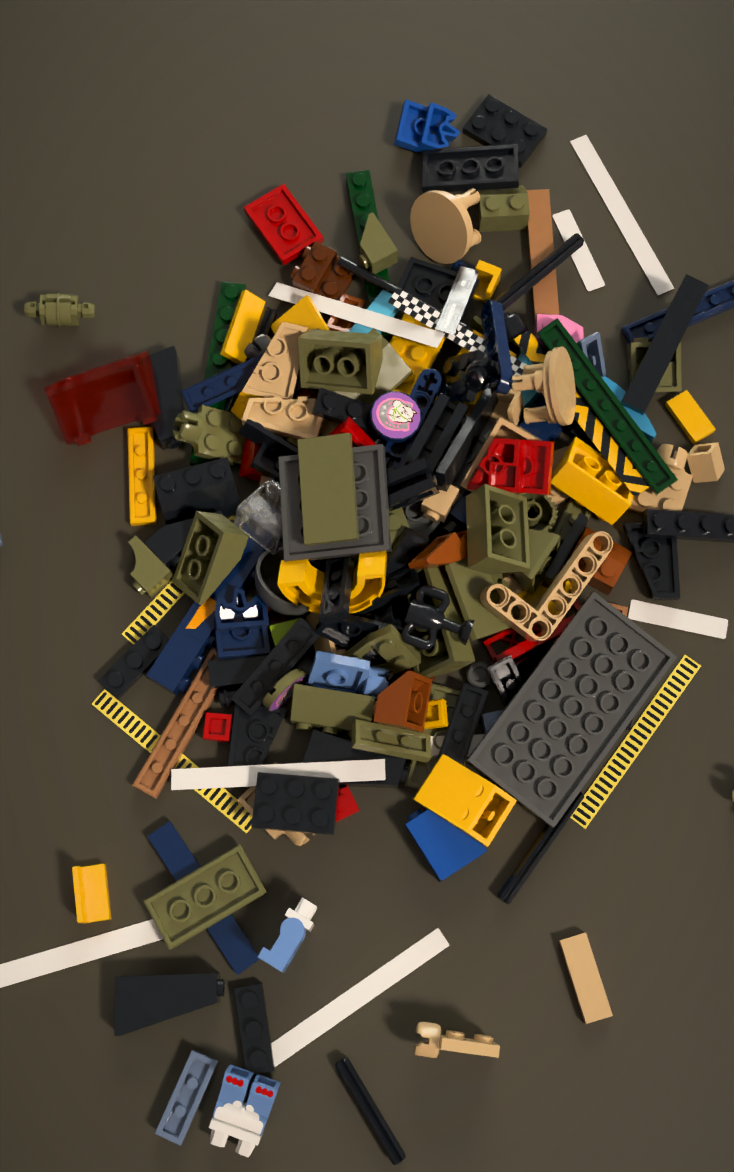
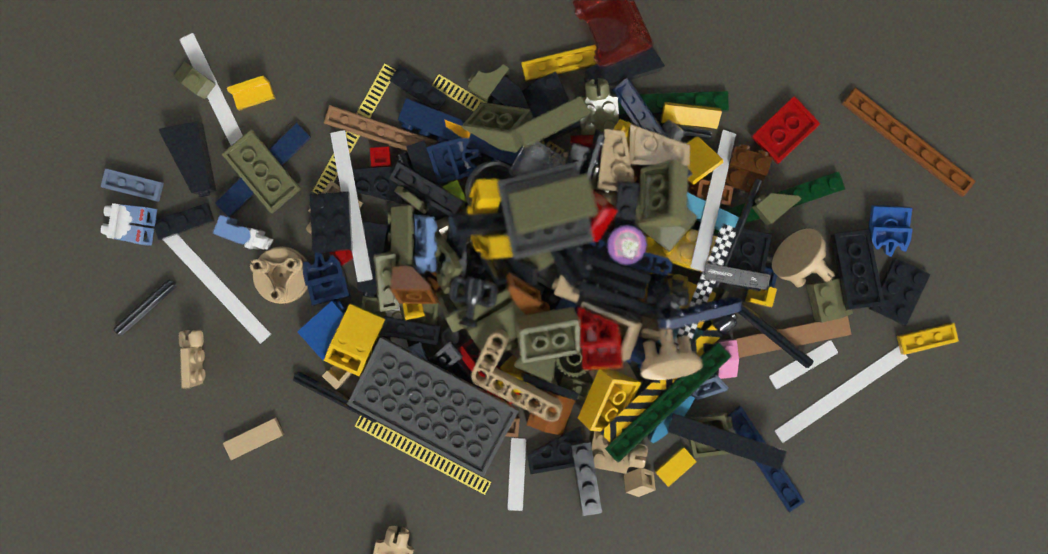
camera: 80 degrees right, 15 degrees up
(54, 975) = (194, 80): none -> olive slope
(219, 483) = (552, 122): none -> olive tile
(324, 96) = (908, 142): none -> dark orange tile
(356, 896) = (279, 275): none -> tan piece
(374, 831) = (325, 280): none -> dark blue plate
(510, 836) = (336, 376): none -> tan panel
(566, 109) = (927, 338): none -> yellow tile

